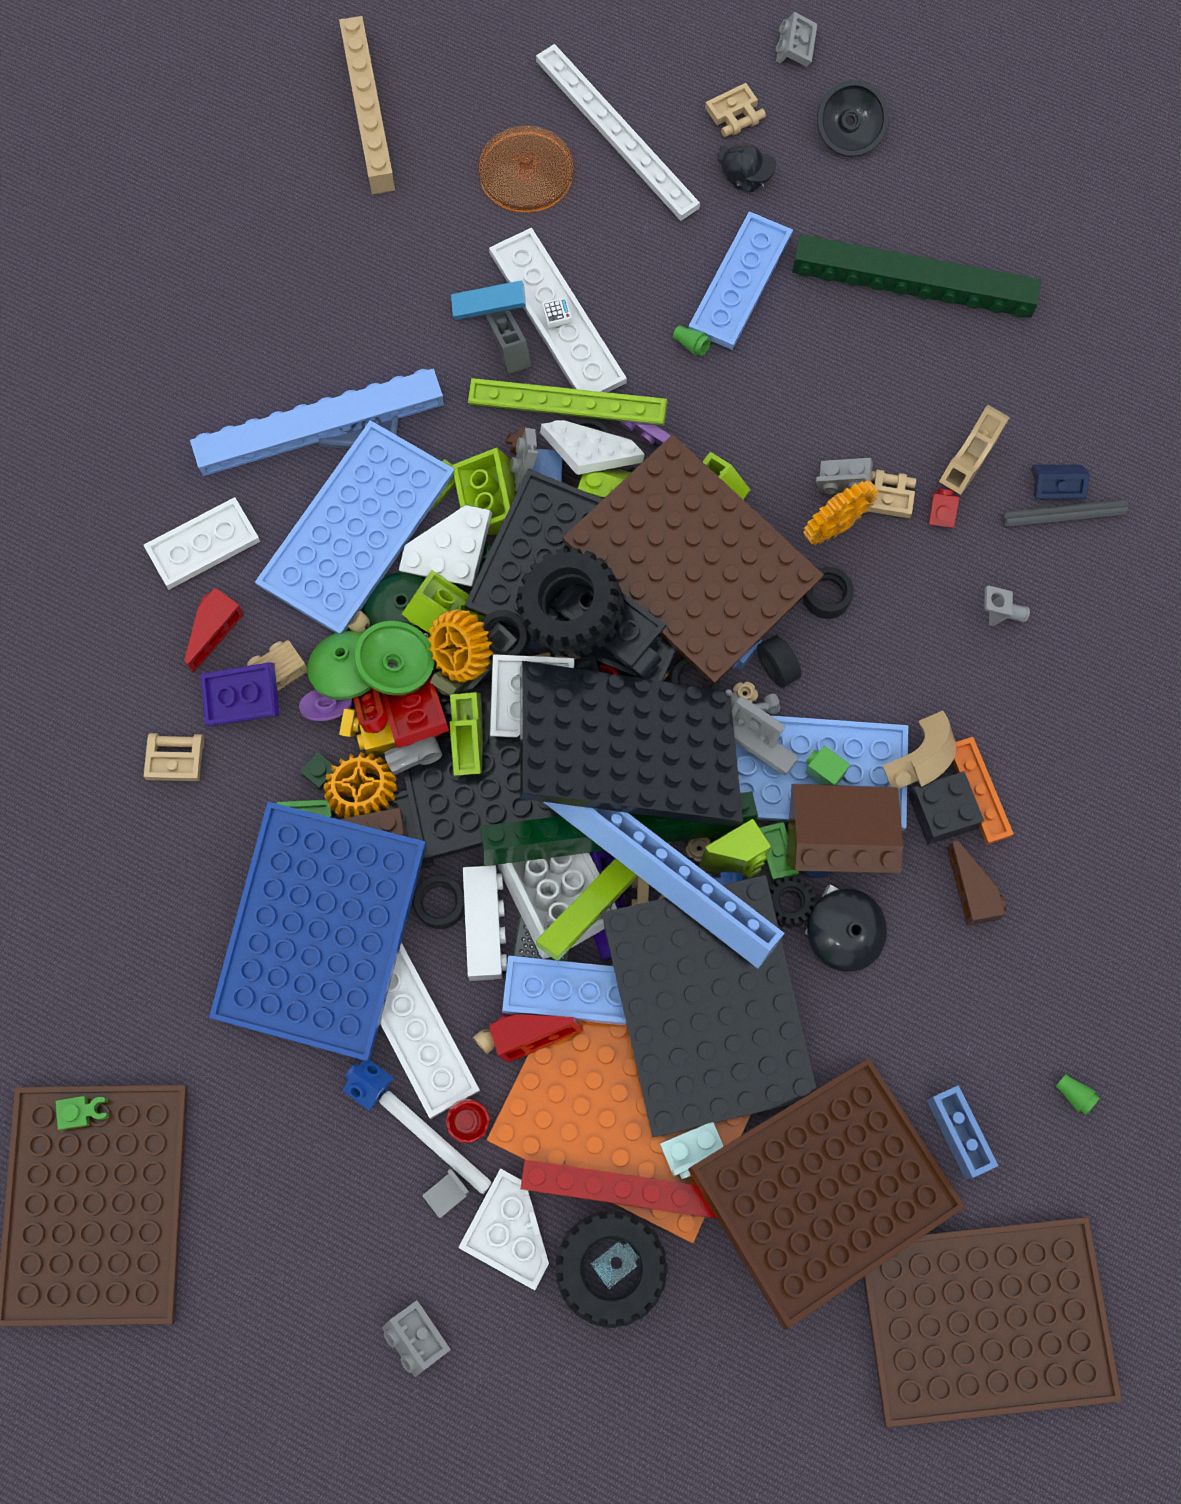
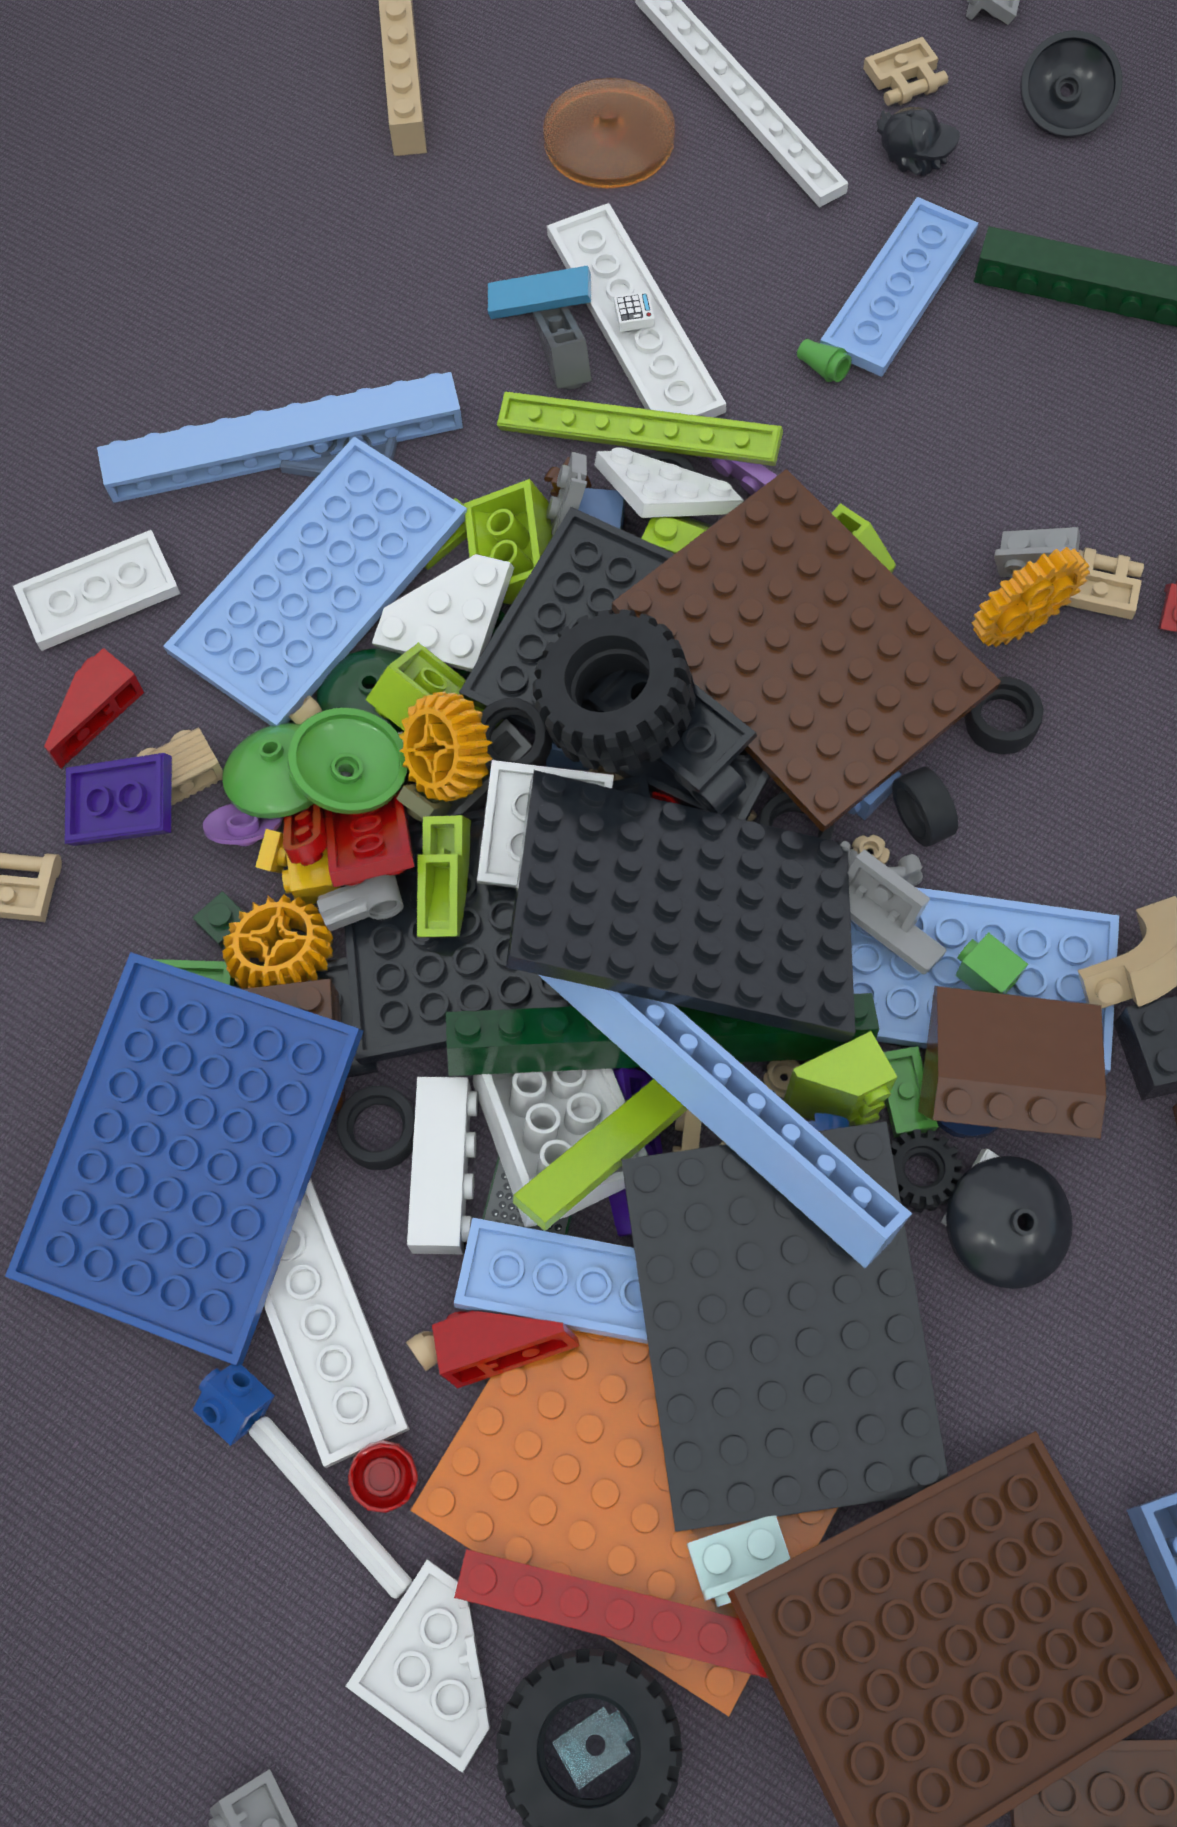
camera: 10 degrees right, 5 degrees down
(446, 1194) = (337, 1593): light grey bracket -> none

